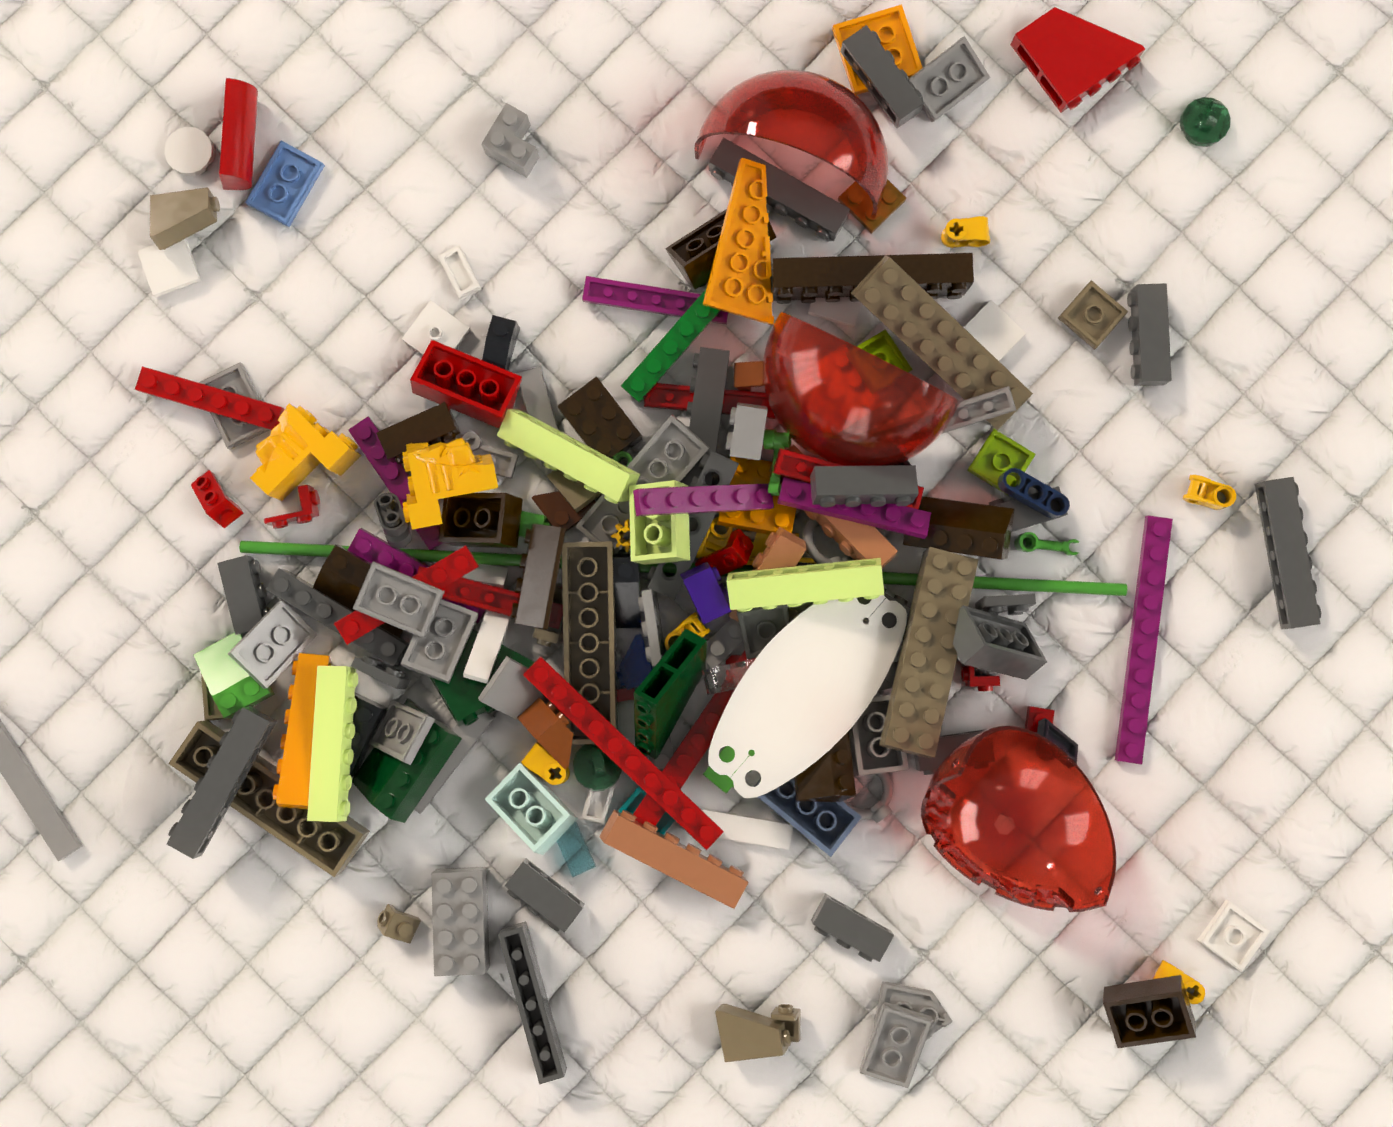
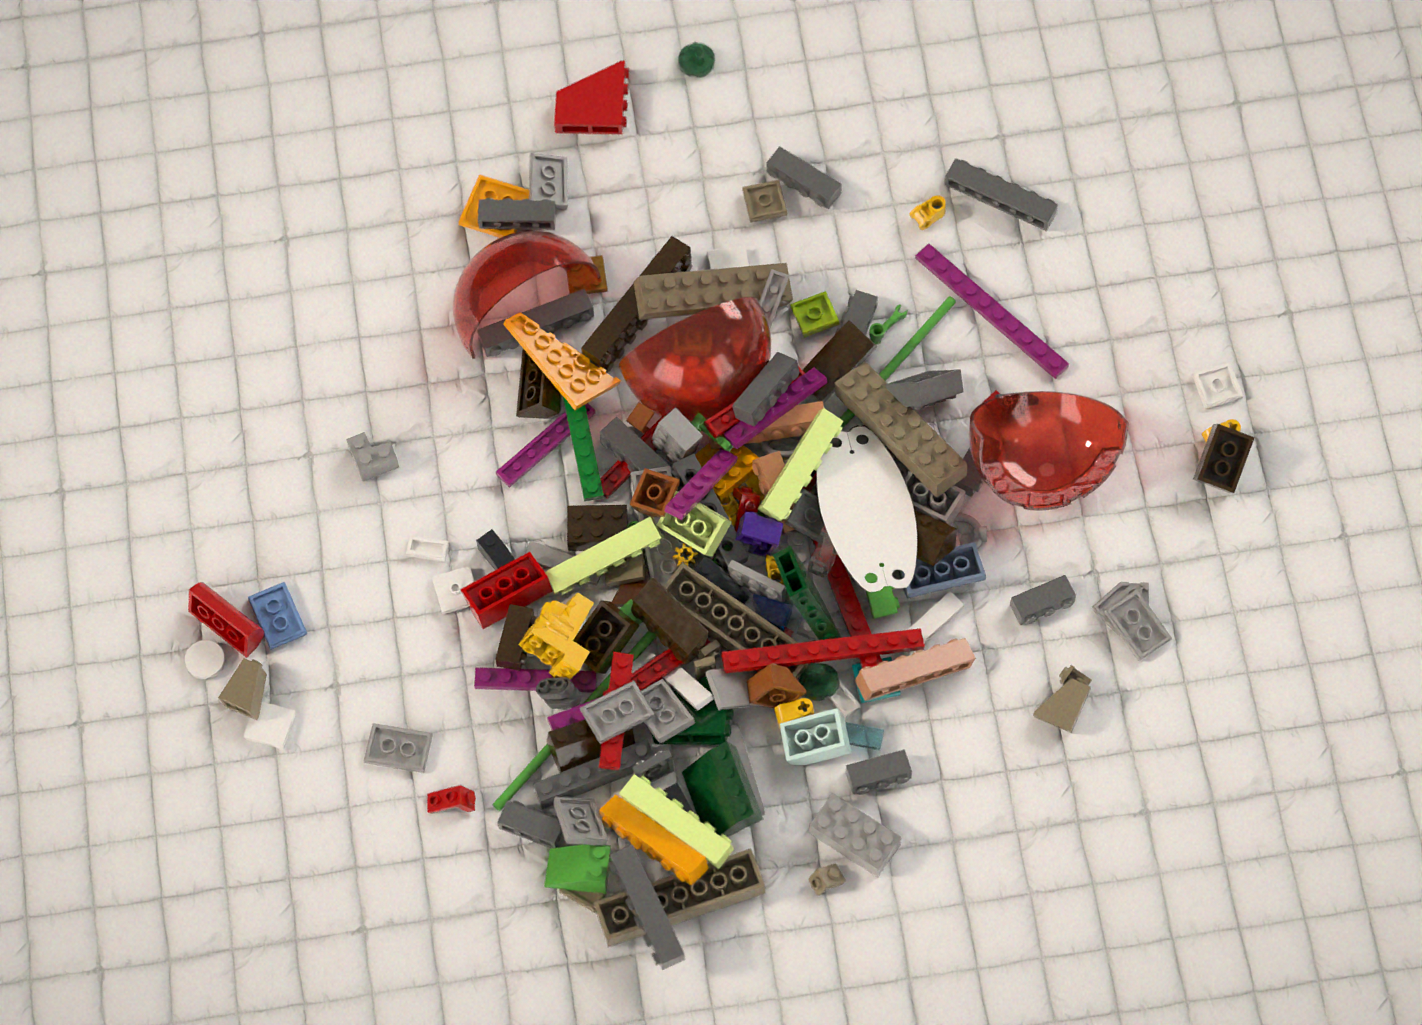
camera: 55 degrees left, 20 degrees down
(208, 398) = (382, 756): red plate -> none
(297, 449) = (460, 718): yellow brick -> none
(309, 500) = (506, 744): red bracket -> none
(401, 731) = (702, 777): light grey tile -> none
(523, 645) = (703, 665): none -> dark tan tile
(532, 1002) = (942, 824): dark grey brick -> none
(659, 459) = (654, 493): none -> dark orange slope
(970, 232) = (653, 236): yellow piece -> none
(984, 683) = (938, 423): red bracket -> none
(1012, 603) = (907, 365): dark grey plate -> none
(1045, 493) = (842, 311): dark blue beam -> none

